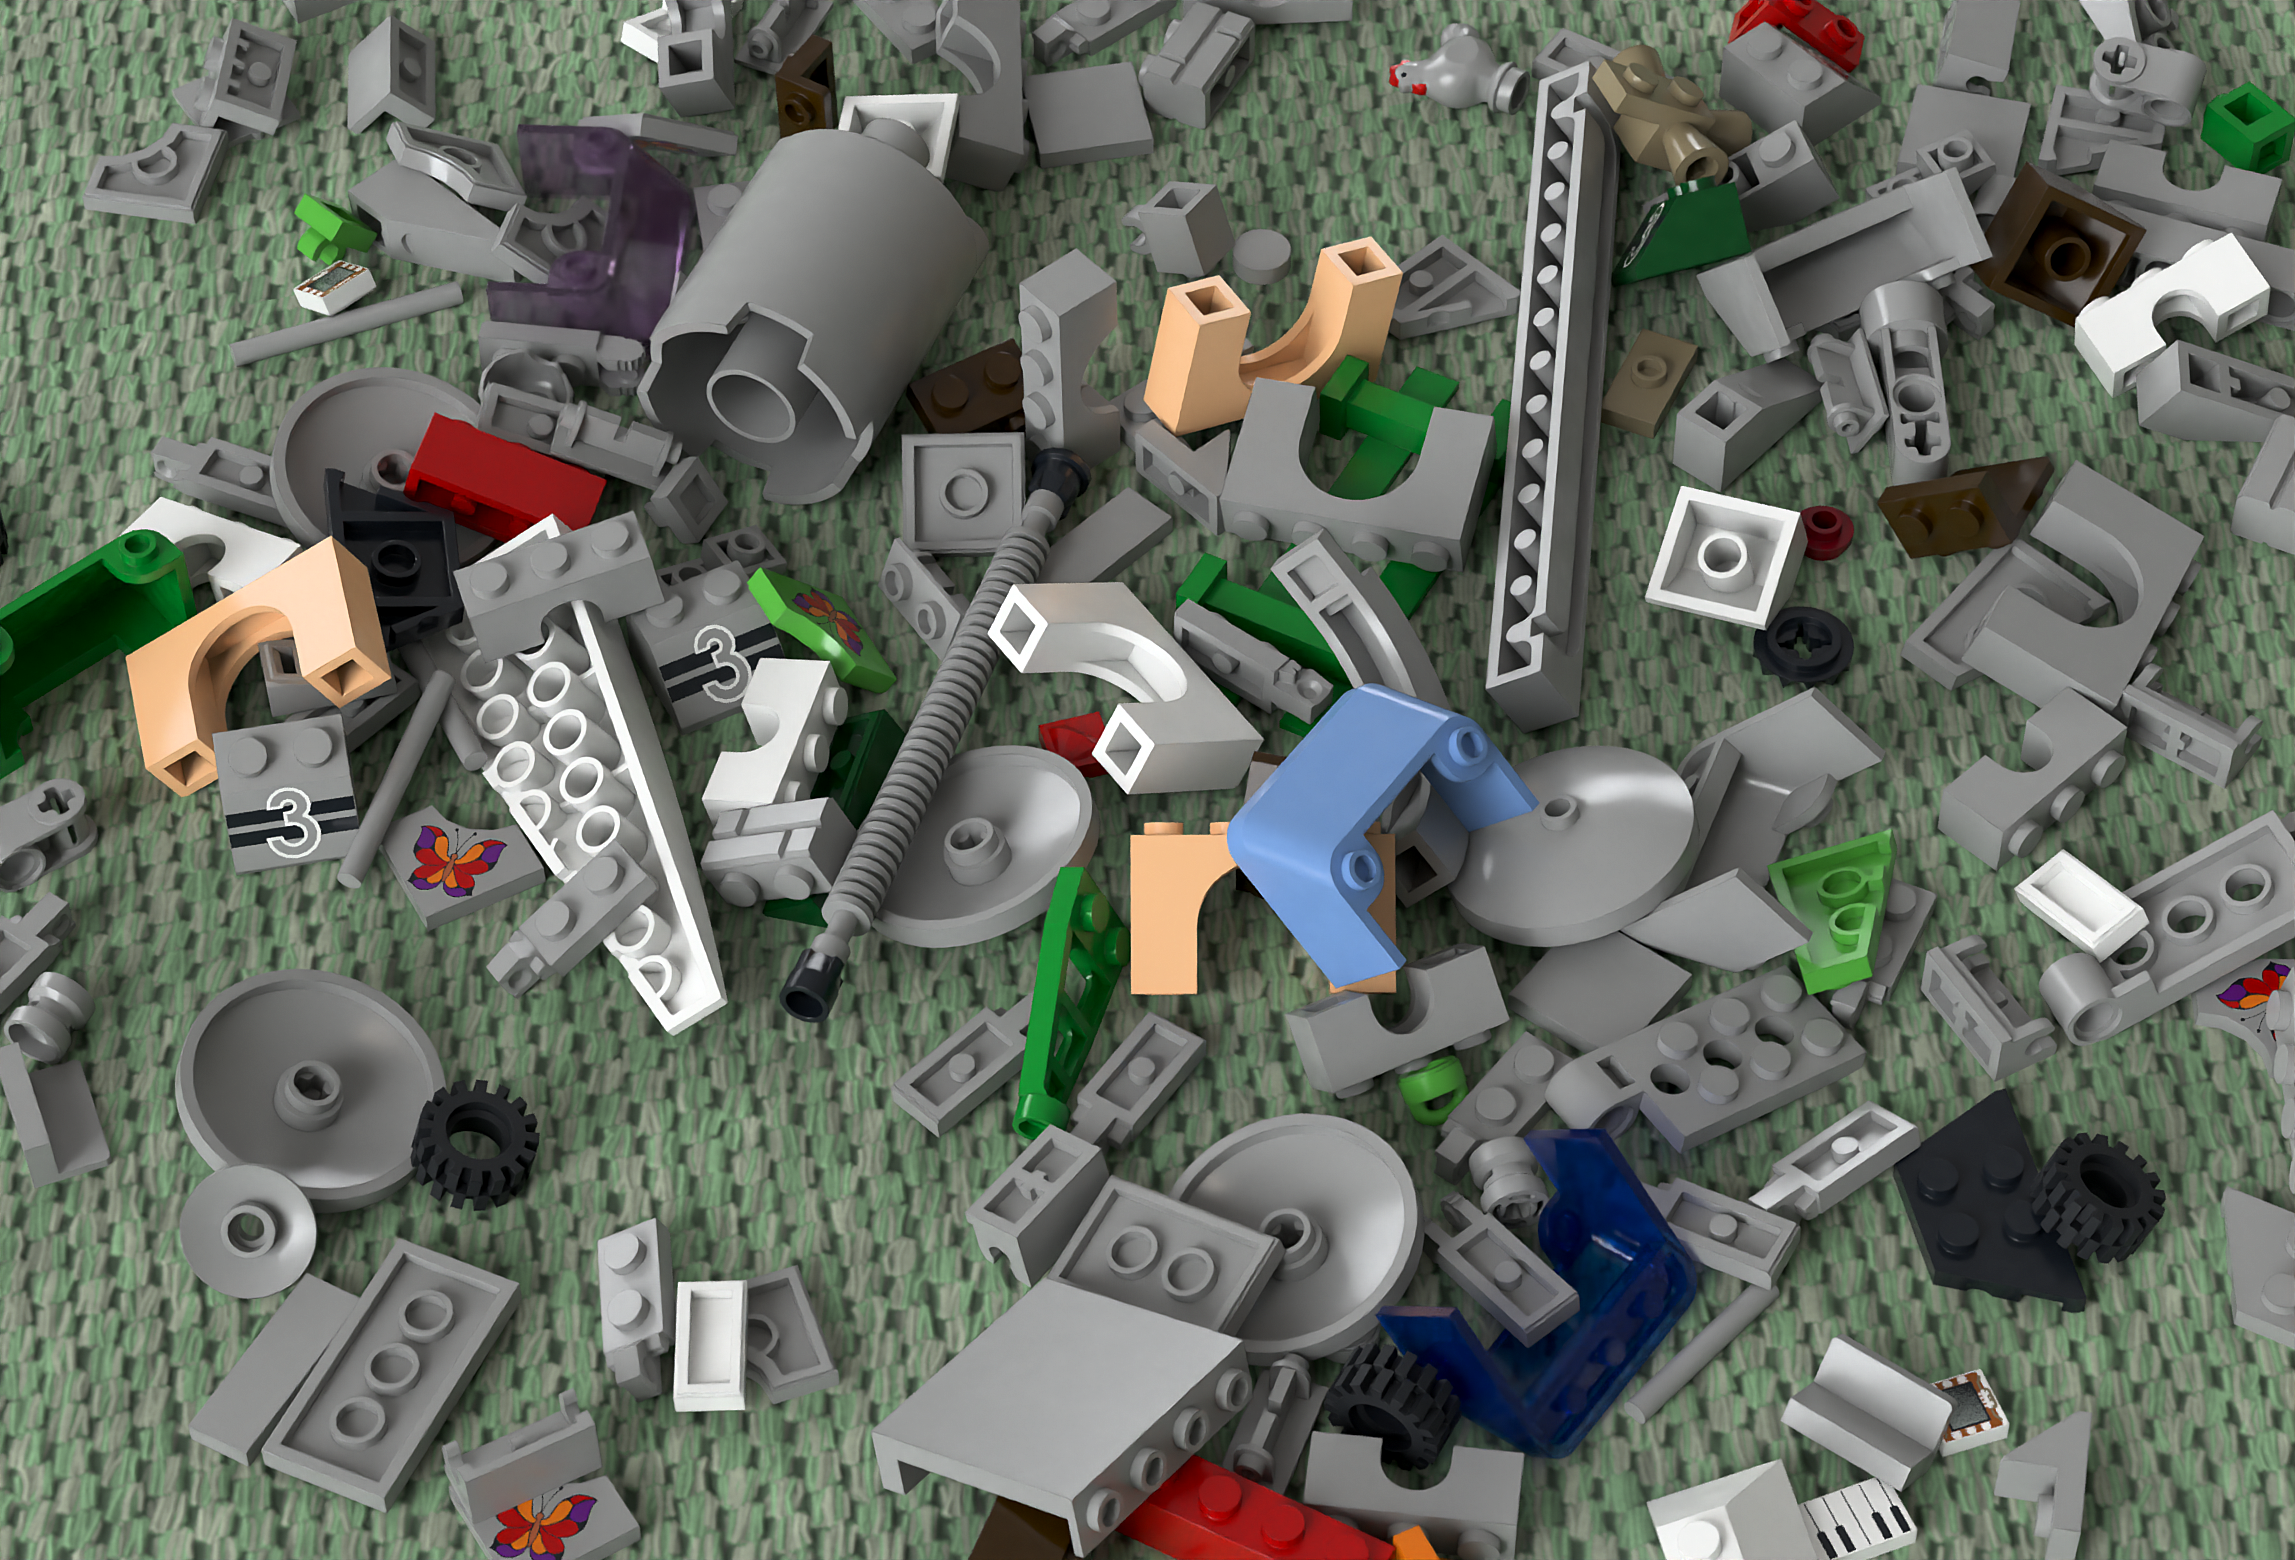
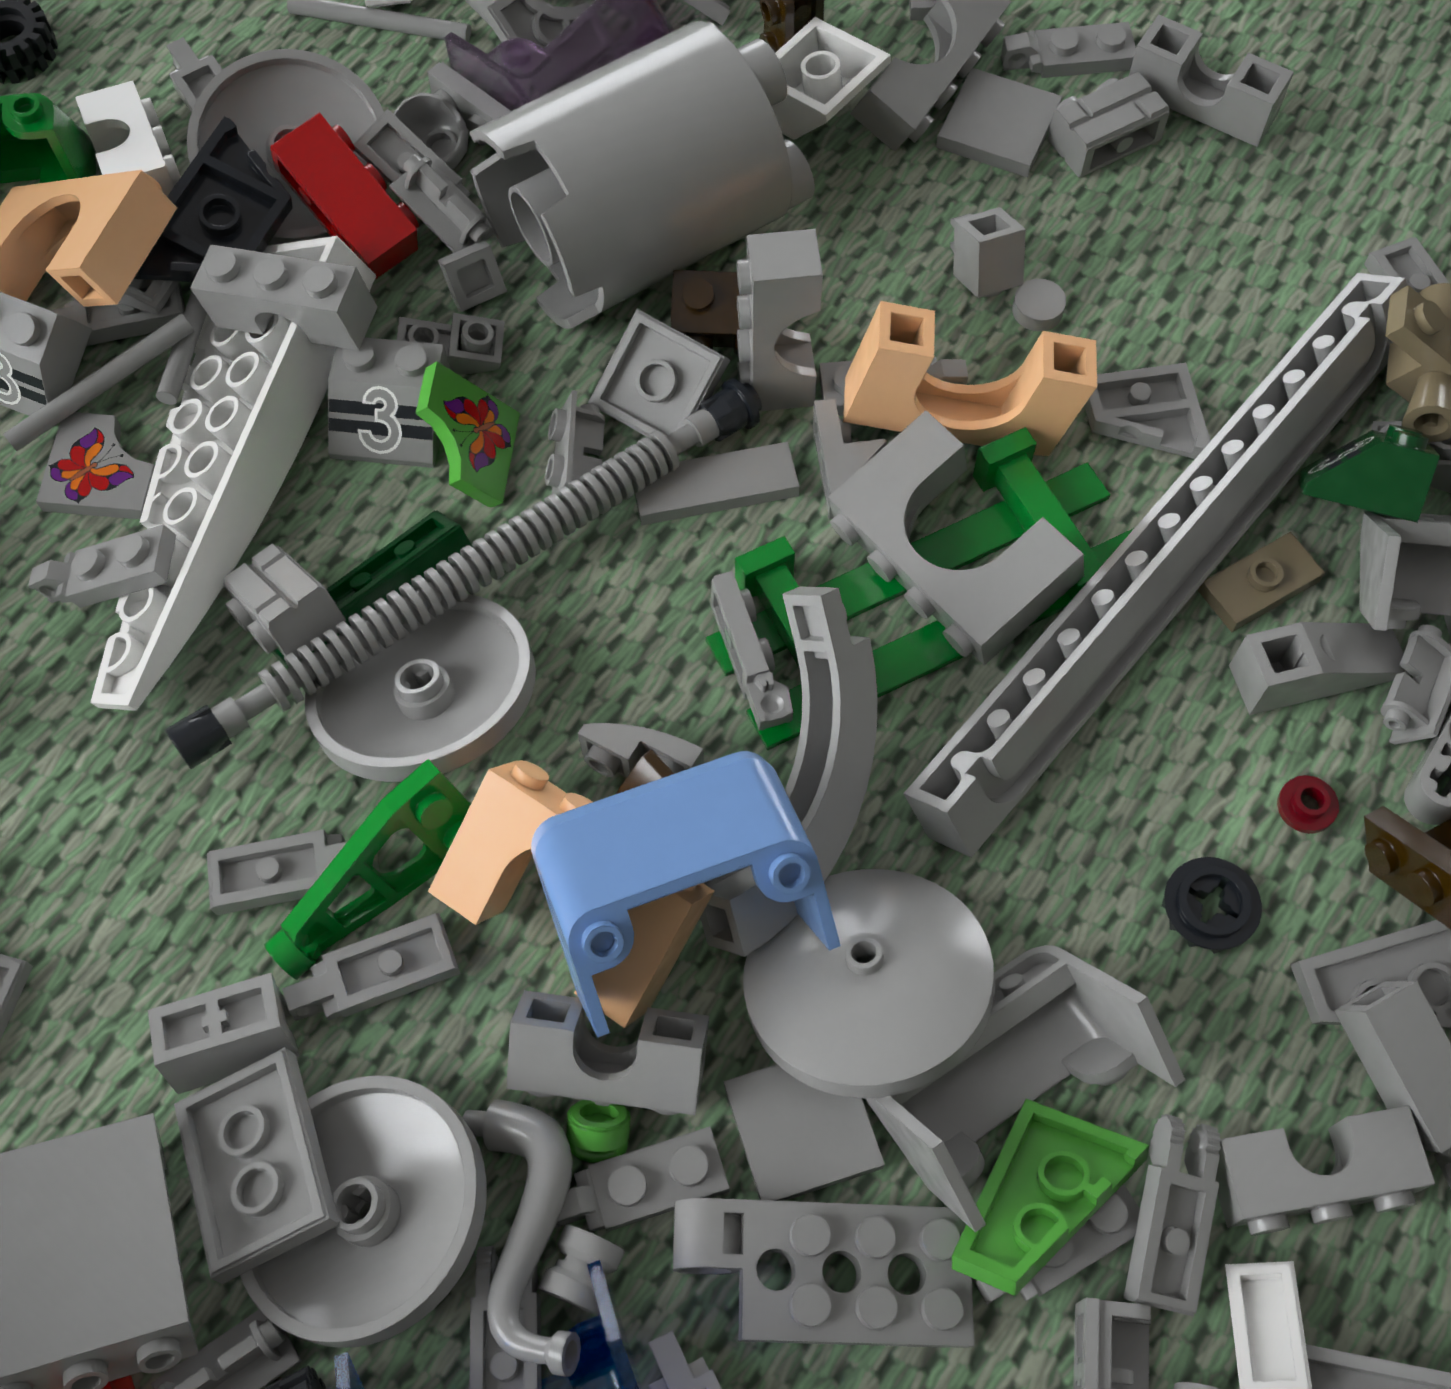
camera: 35 degrees right, 15 degrees up
(794, 717) = (336, 541): white arch -> none
(1075, 741) = (581, 640): red tile -> none
(1182, 730) = (668, 565): white arch -> none
(1205, 795) = (618, 748): none -> light grey slope
(1421, 1119) = (544, 1145): none -> light grey animal
(1464, 74) = (1307, 235): light grey animal -> none
(1728, 558) = (1195, 793): white slope -> none
(1950, 866) = (1174, 1218): none -> light grey hinge

